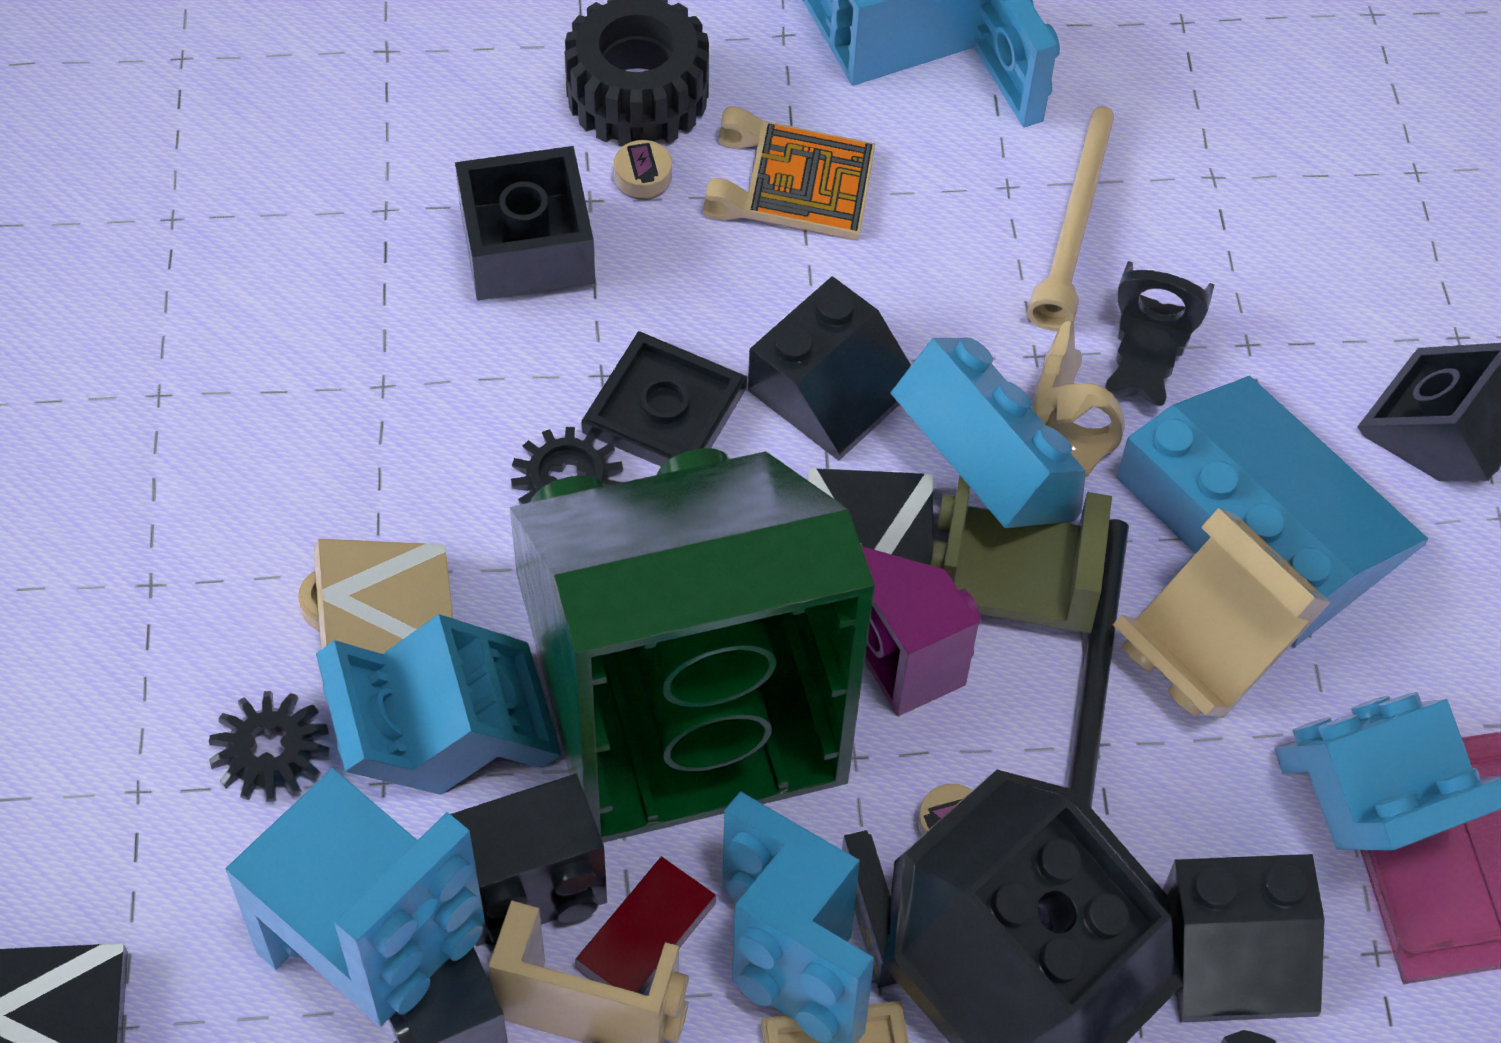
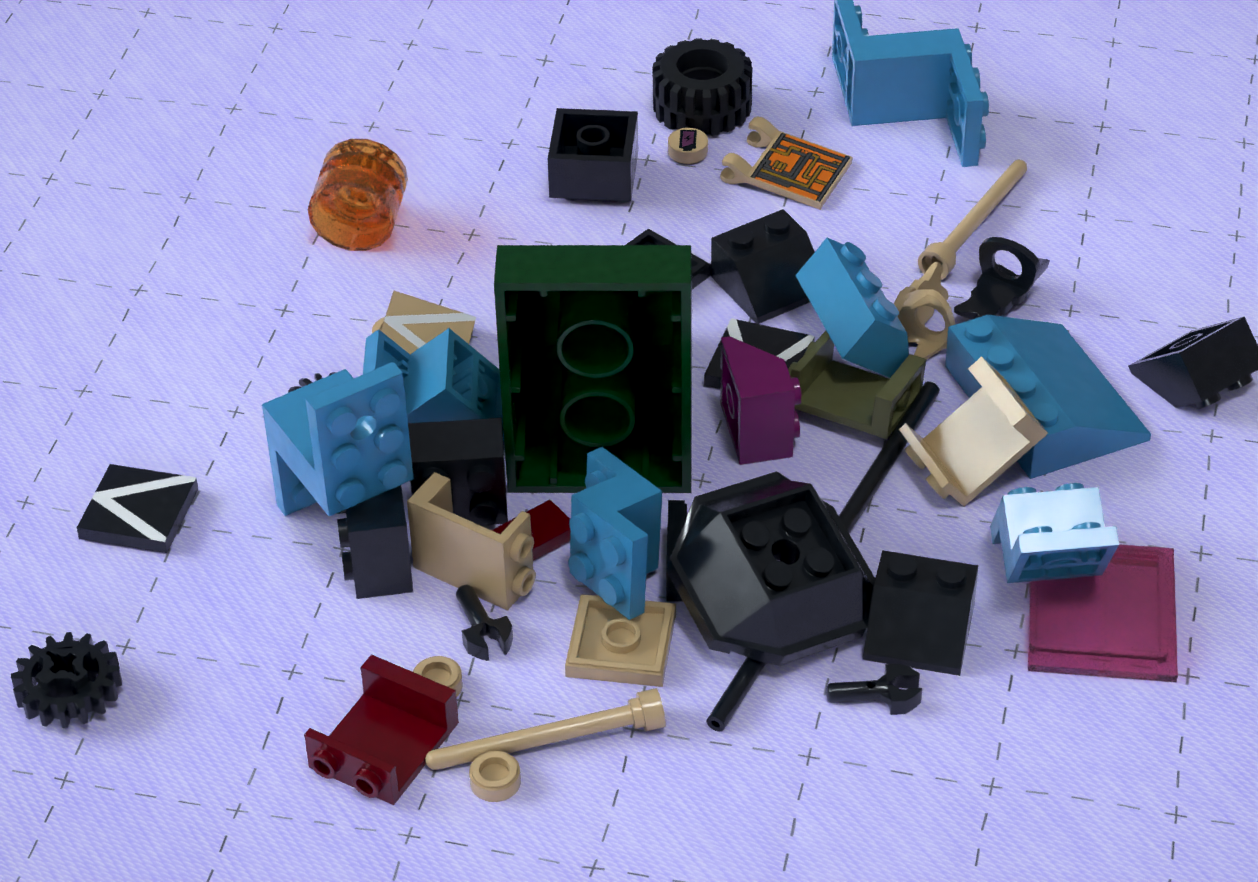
camera: 20 degrees right, 15 degrees down
(207, 372) = (358, 195): none -> clear orange wheel

